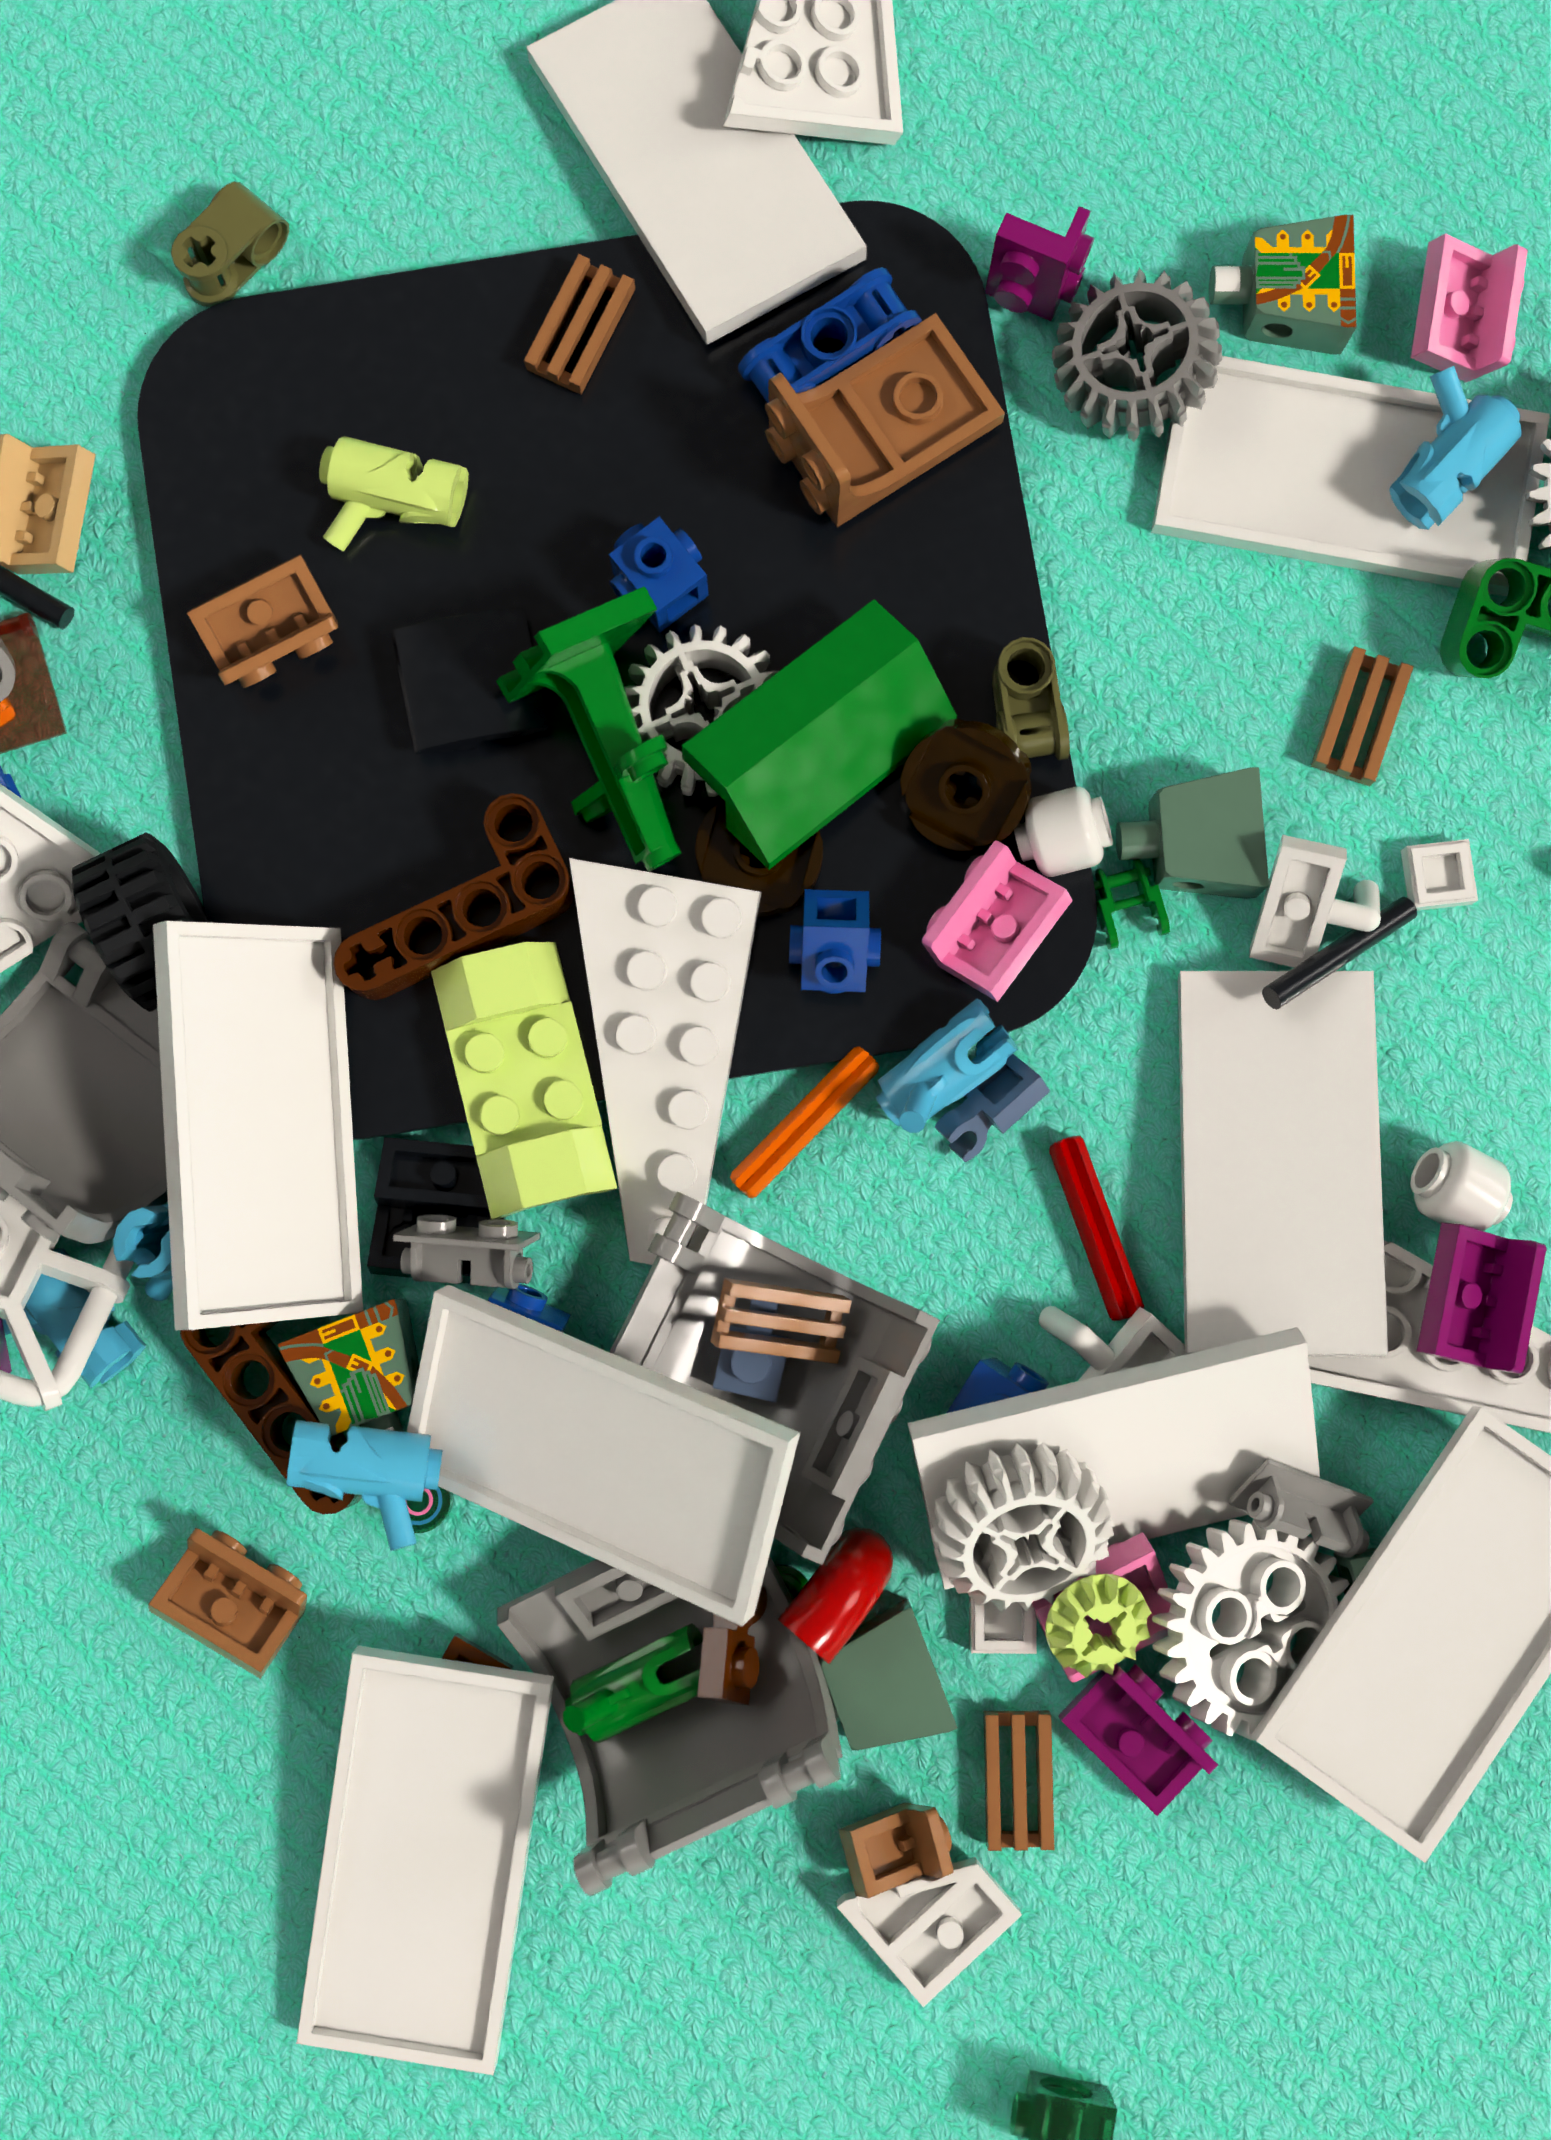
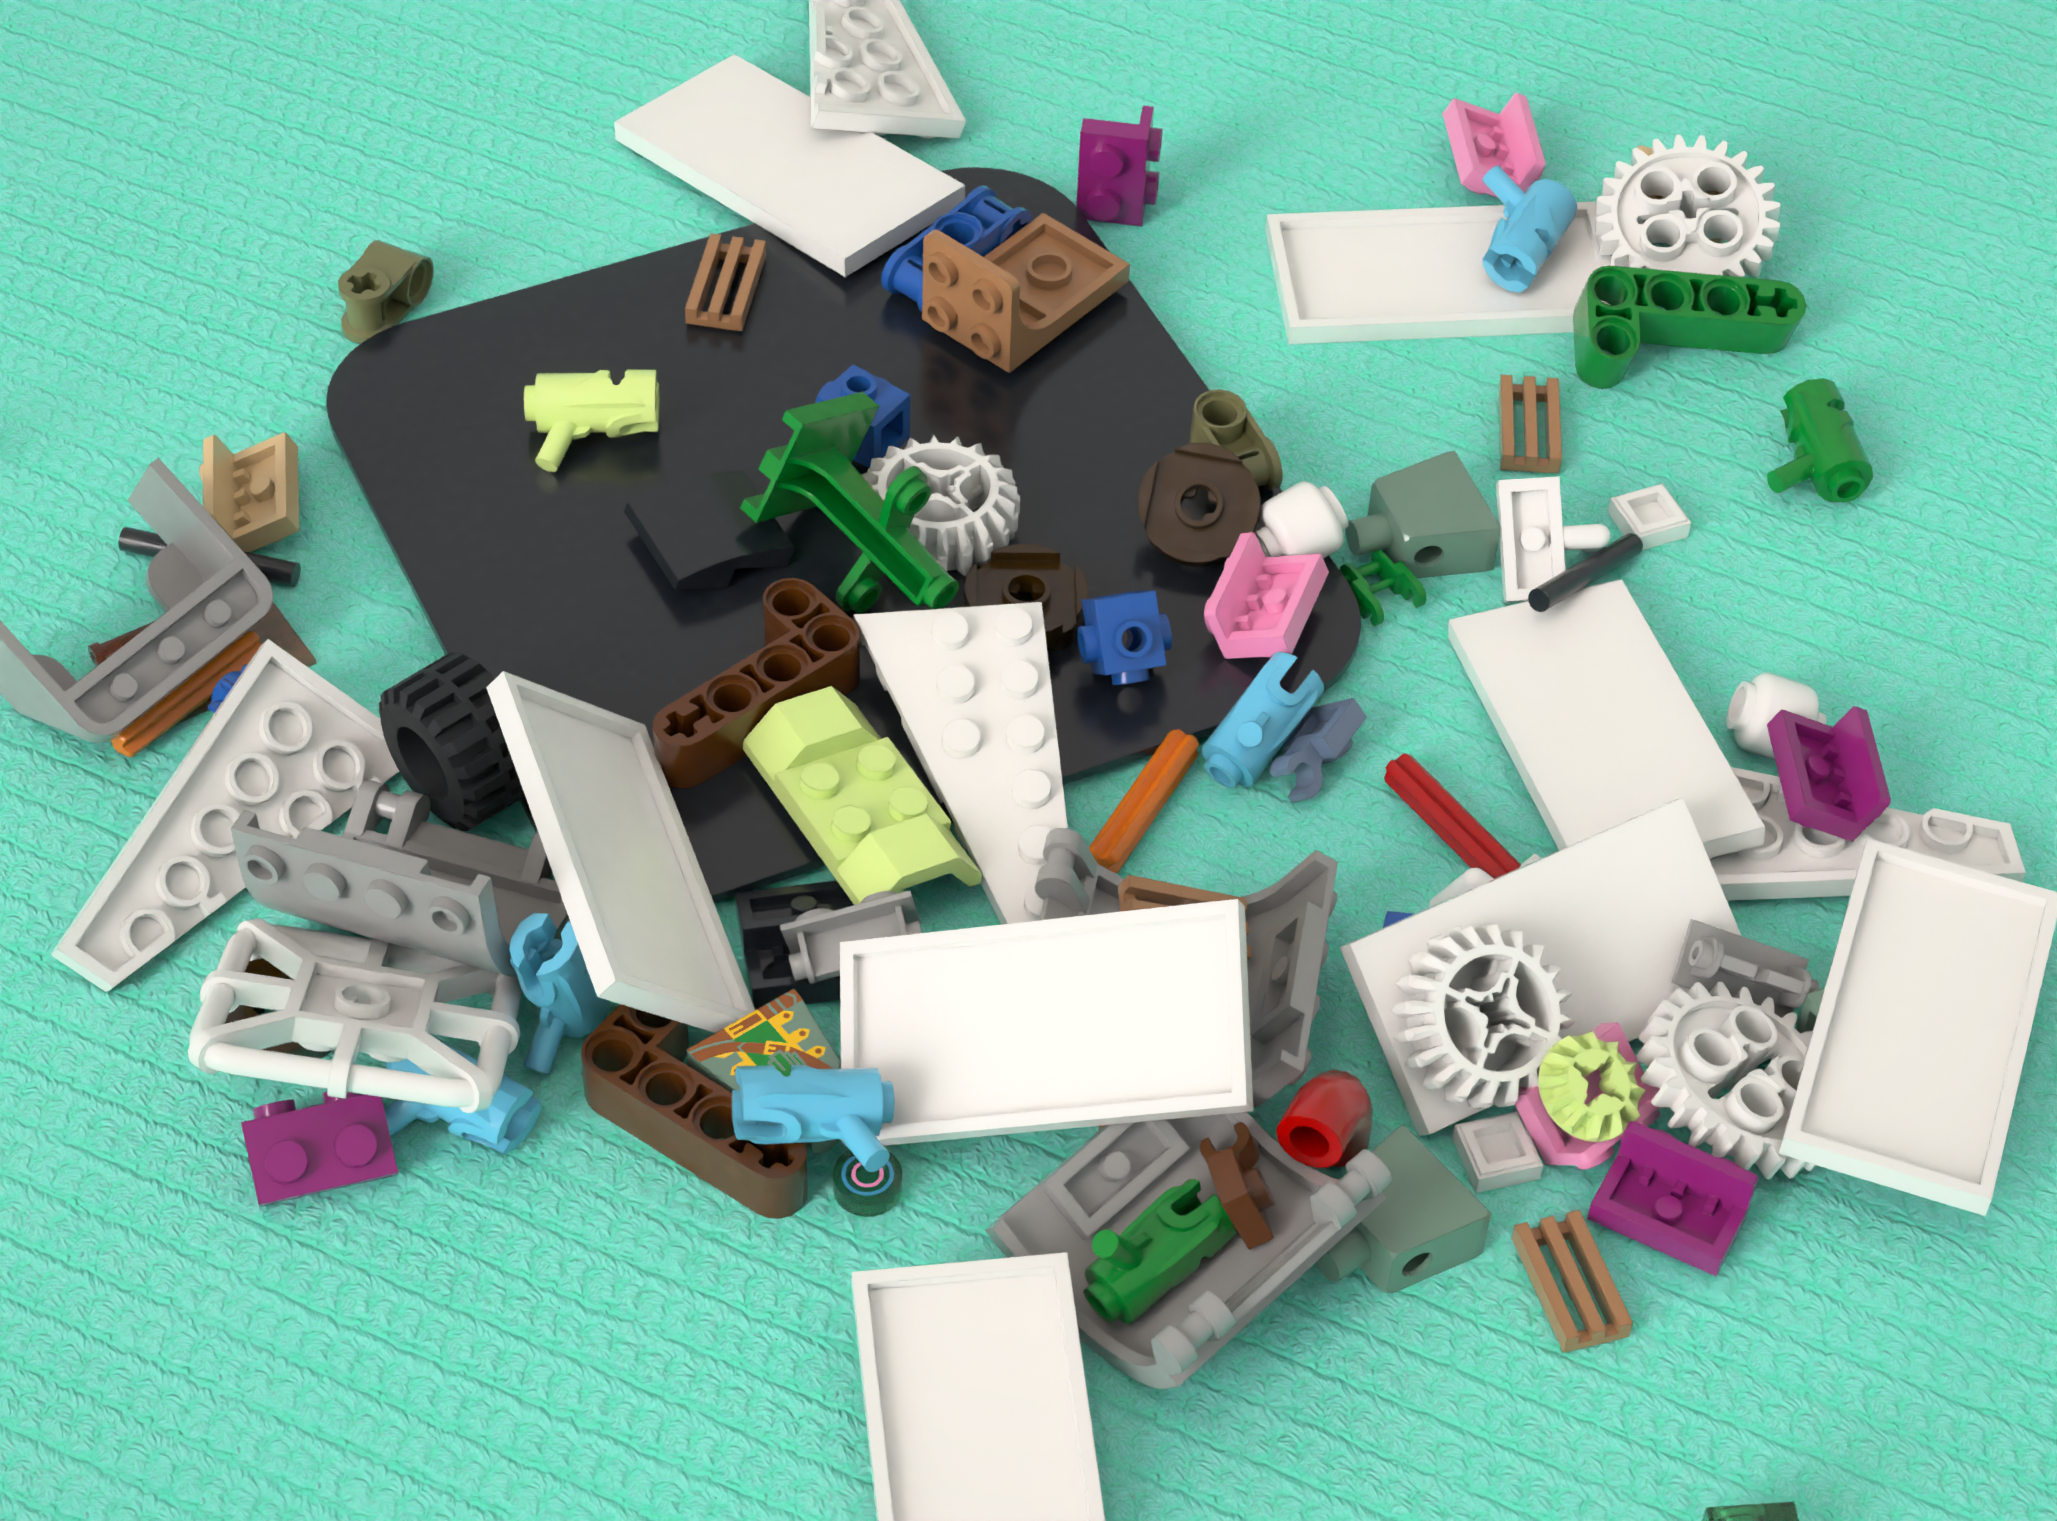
camera: 20 degrees left, 35 degrees down
(230, 1601) = (701, 1291): medium nougat bracket -> none
(265, 621) = (501, 518): medium nougat bracket -> none
(820, 733) = (1052, 486): green slope -> none
(896, 1848) = (1475, 1354): medium nougat bracket -> none
(933, 1924) = (1534, 1416): white wing -> none
(1181, 333) = (1227, 217): light grey gear -> none
(1295, 285) = (1342, 158): torso -> none

